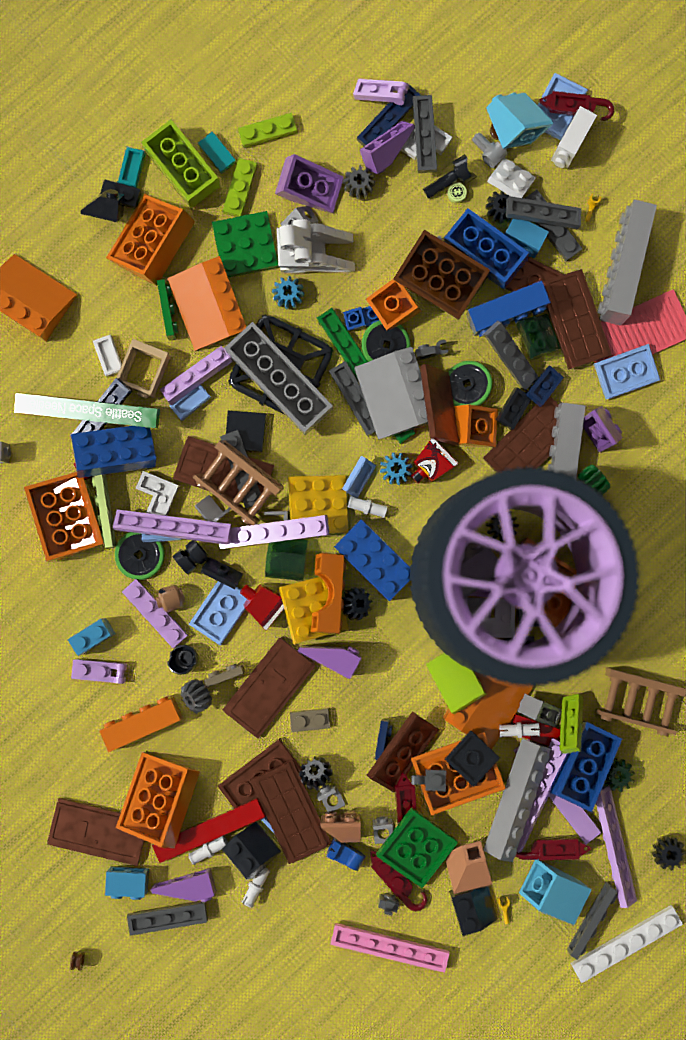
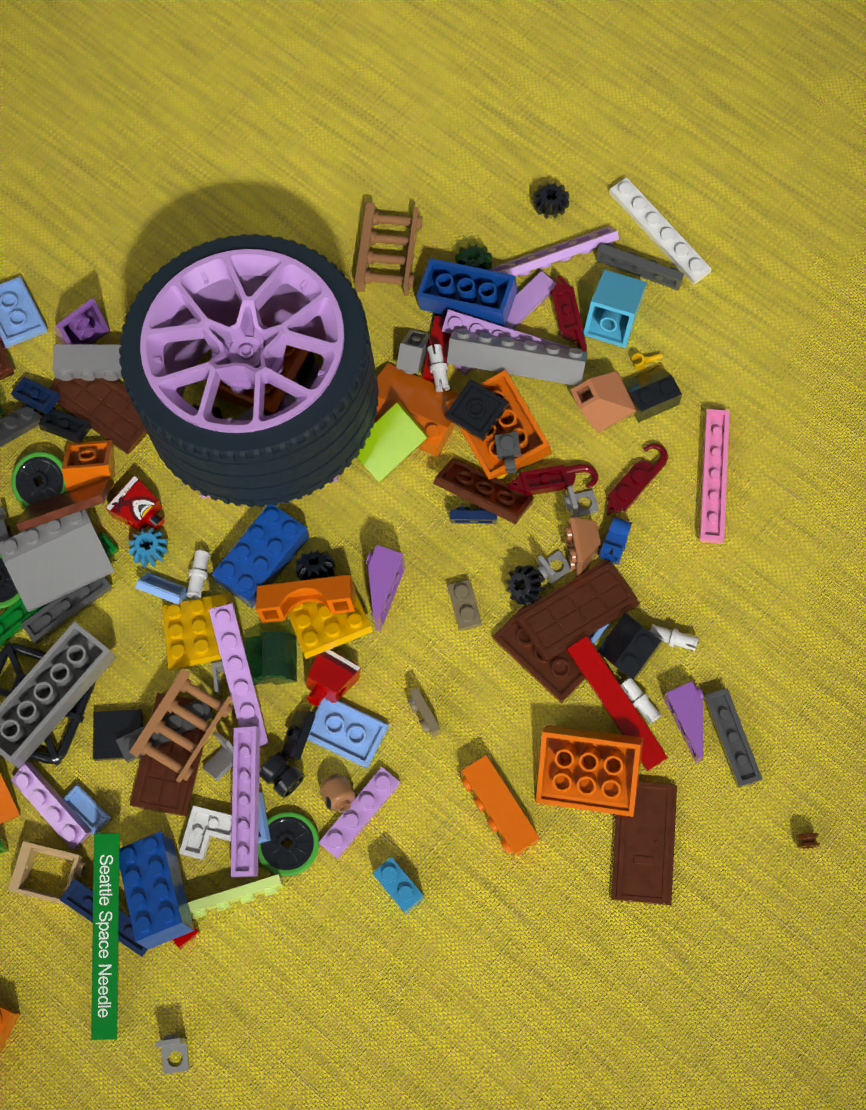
camera: 95 degrees left, 15 degrees down
(63, 516) = (247, 946): orange slope -> none
(98, 671) = (442, 873): lavender plate -> none
(108, 355) = (33, 925): white tile -> none
(127, 882) = (698, 793): dark azure brick -> none
(183, 659) = (411, 765): black hair -> none
(196, 696) = (453, 740): dark grey gear -> none
(268, 687) = (432, 659): copper piece -> none
(388, 903) = (661, 482): dark grey plate -> none
(416, 848) = (592, 460): green plate -> none
(571, 723) = (421, 312): lime plate -> none

